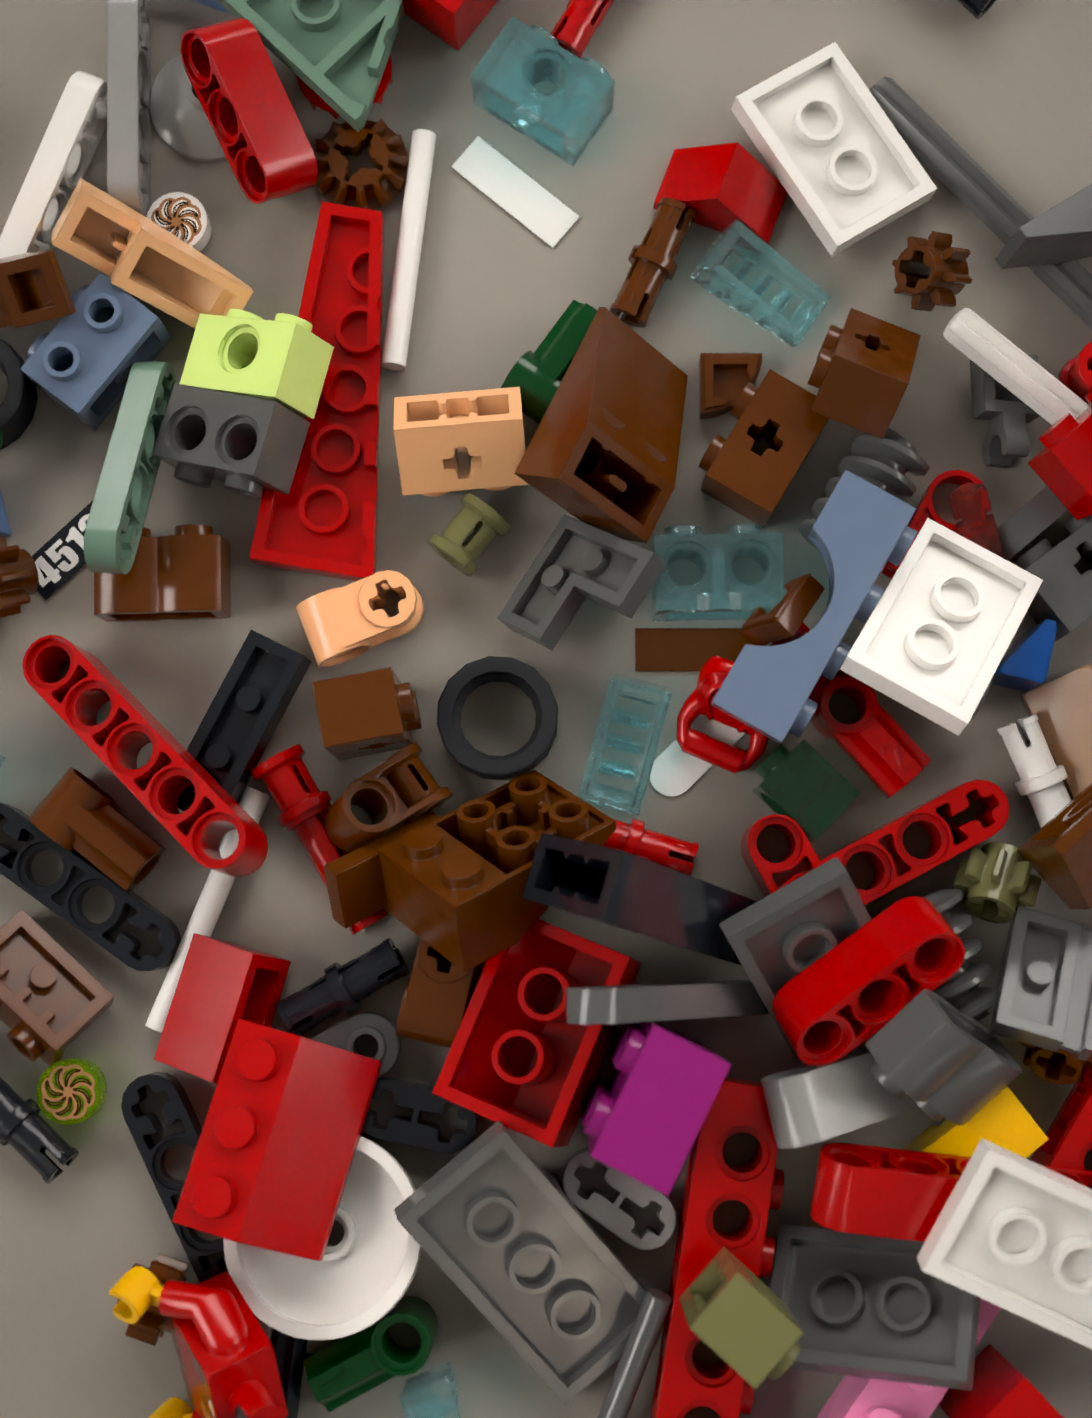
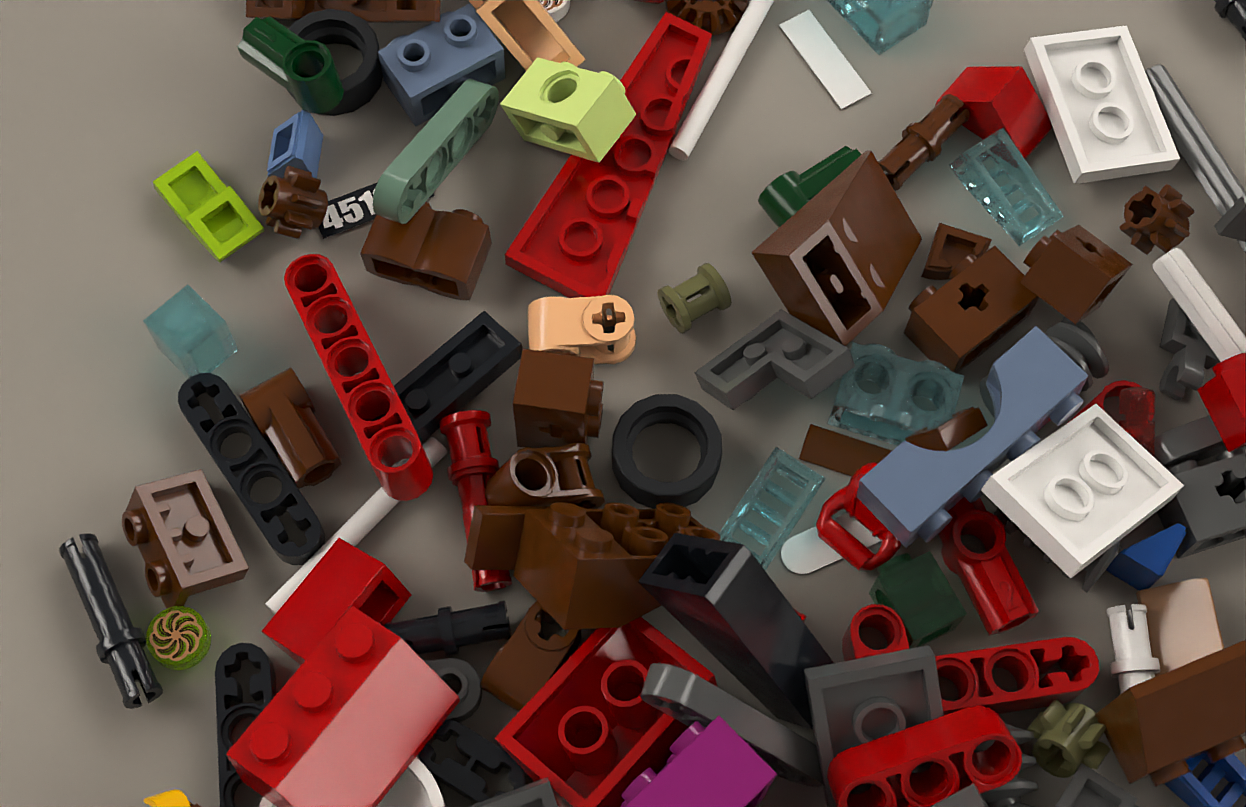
camera: 15 degrees right, 15 degrees down
(230, 439) = (526, 157): dark grey brick -> none
(459, 441) = (683, 223): light nougat brick -> none

